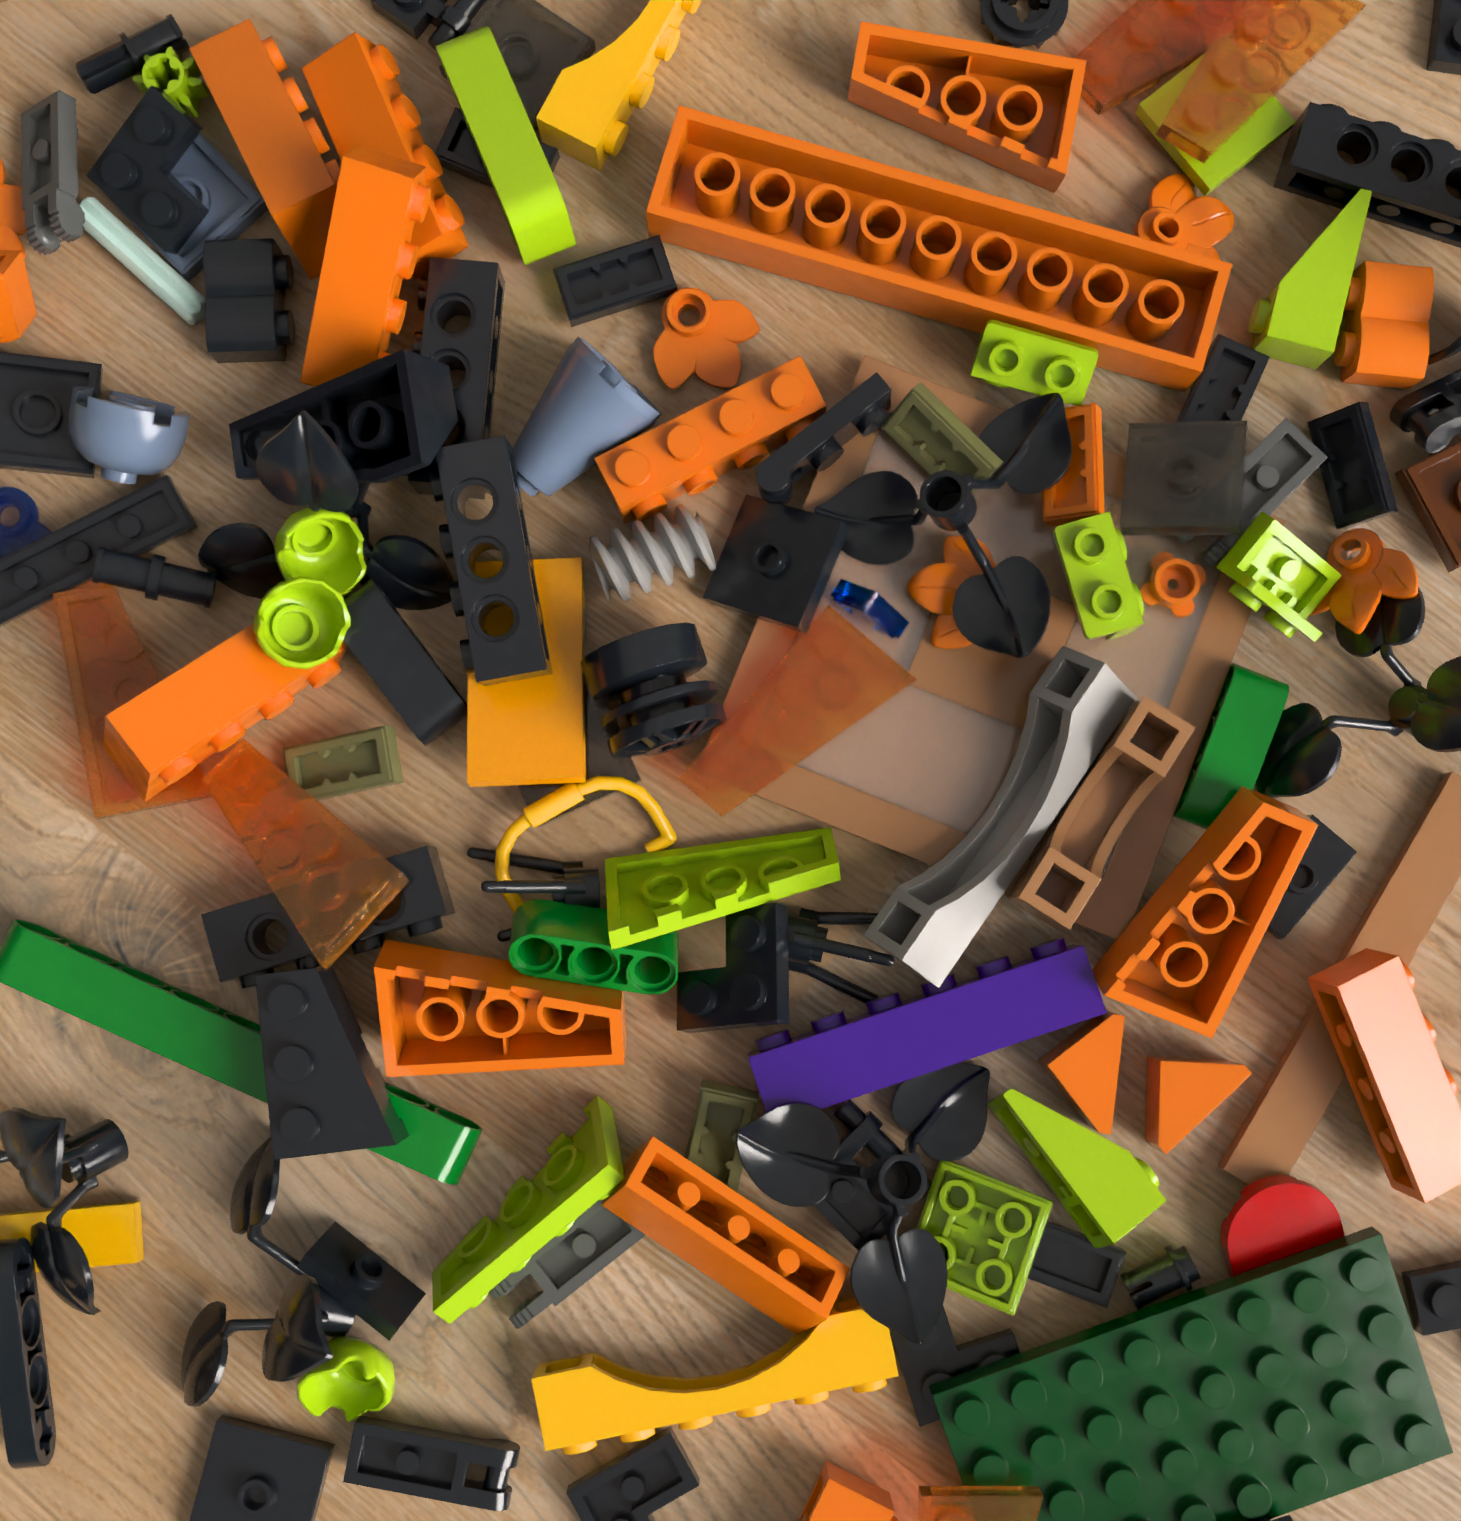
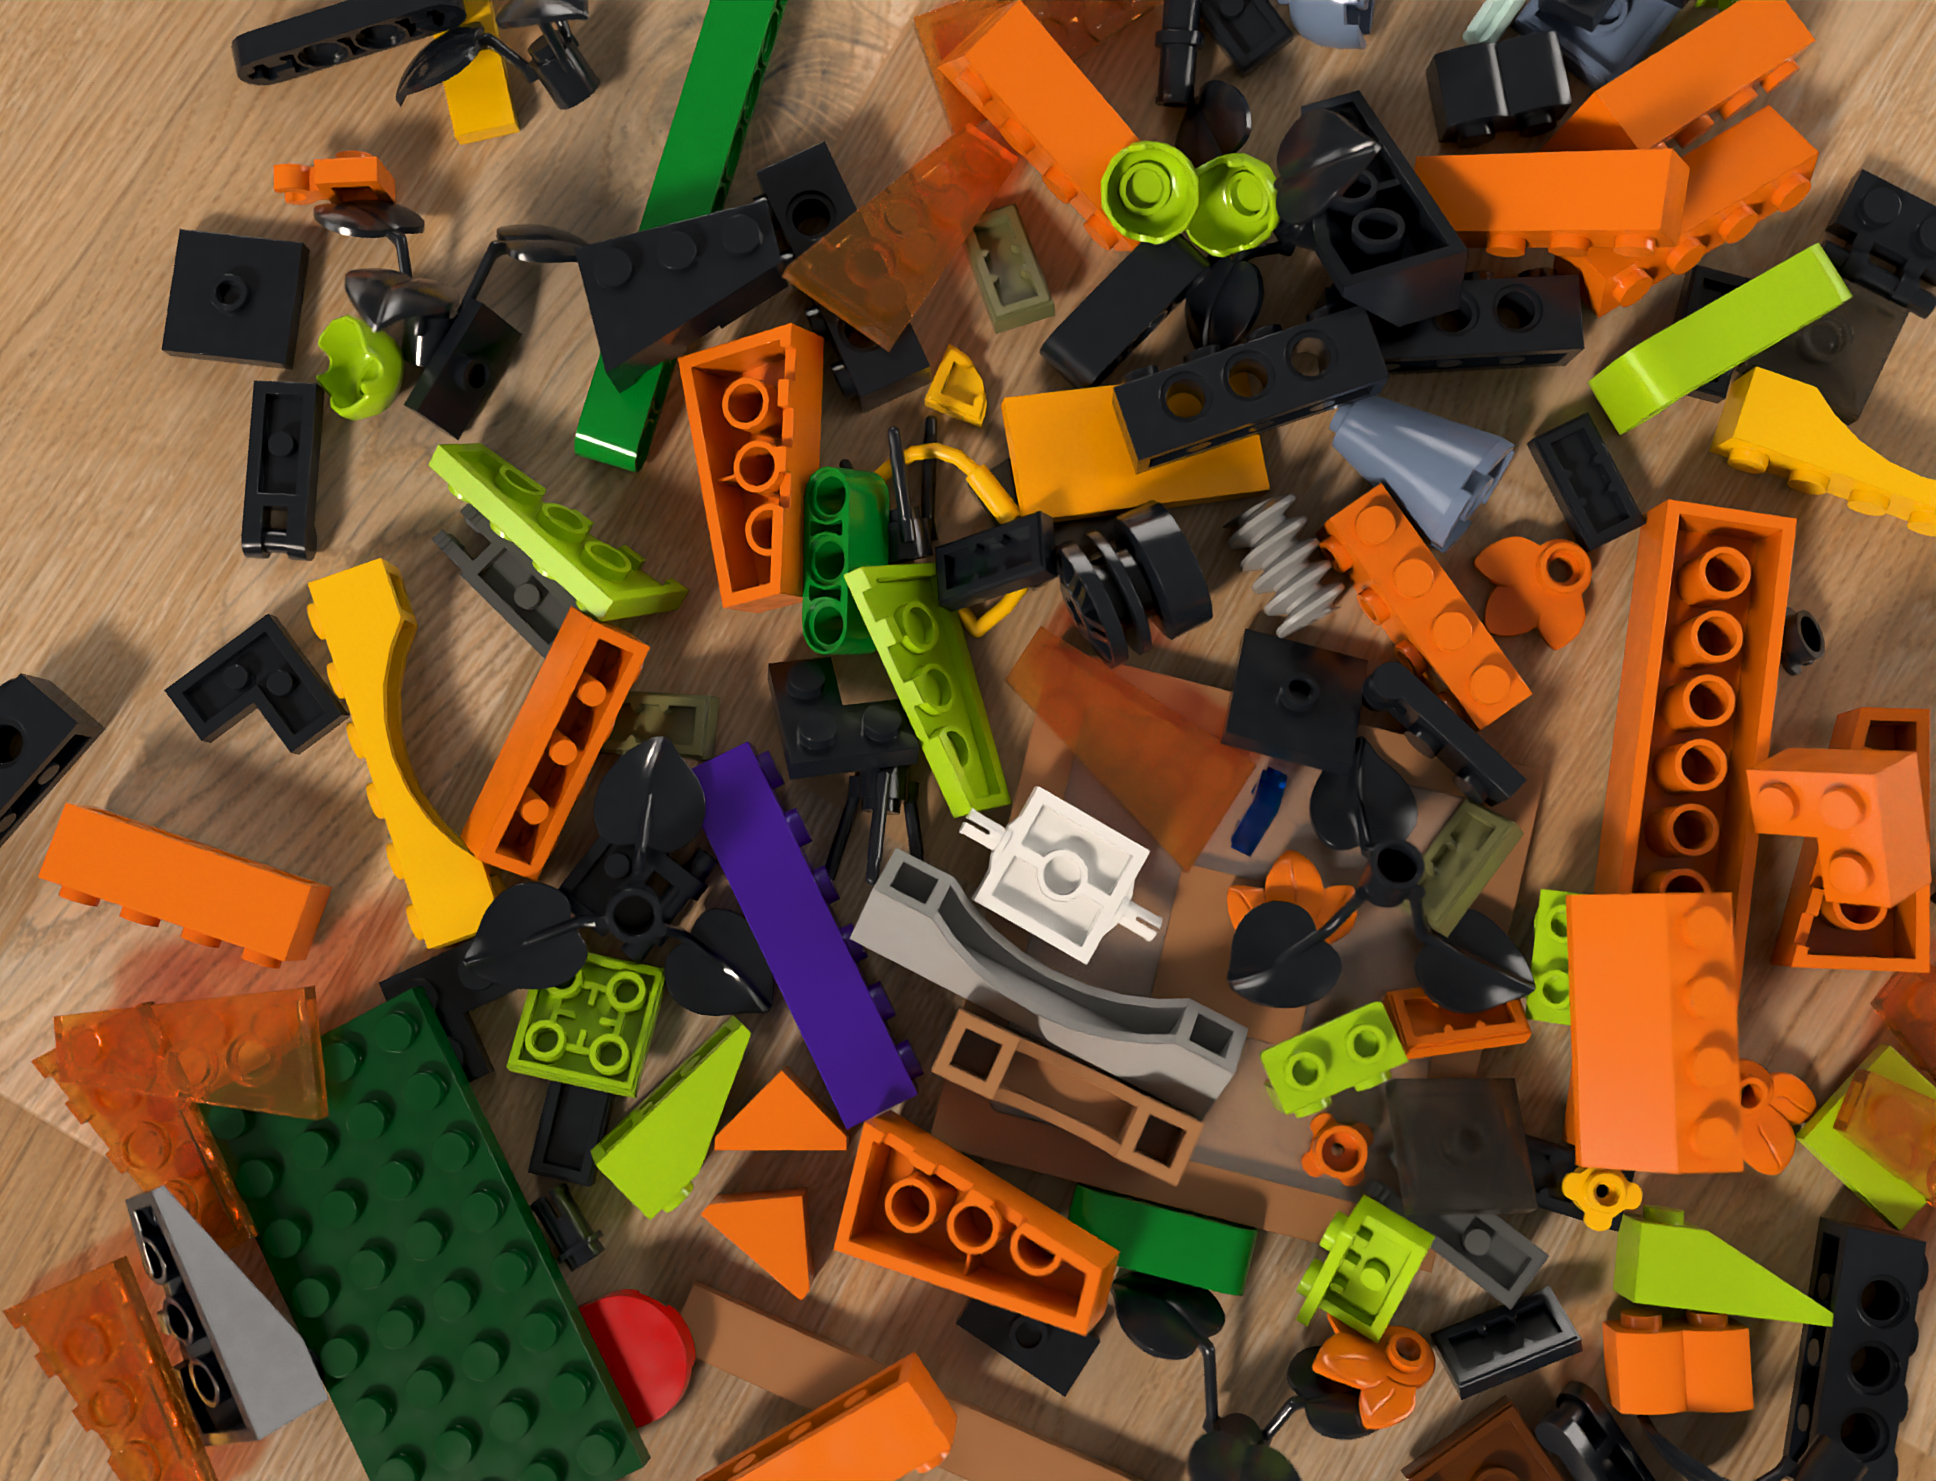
camera: 80 degrees right, 0 degrees up
(161, 1370) = (337, 179): none -> orange plate
(447, 823) = (958, 389): none -> yellow tile
(615, 810) = (996, 561): none -> black plate
(781, 118) = (1801, 641): none -> black plate
(904, 792) = (1061, 875): none -> white plate
(946, 93) = (1861, 811): none -> orange brick
(1112, 297) = (1654, 1032): none -> orange slope
(1230, 380) = (1597, 1210): none -> yellow plate

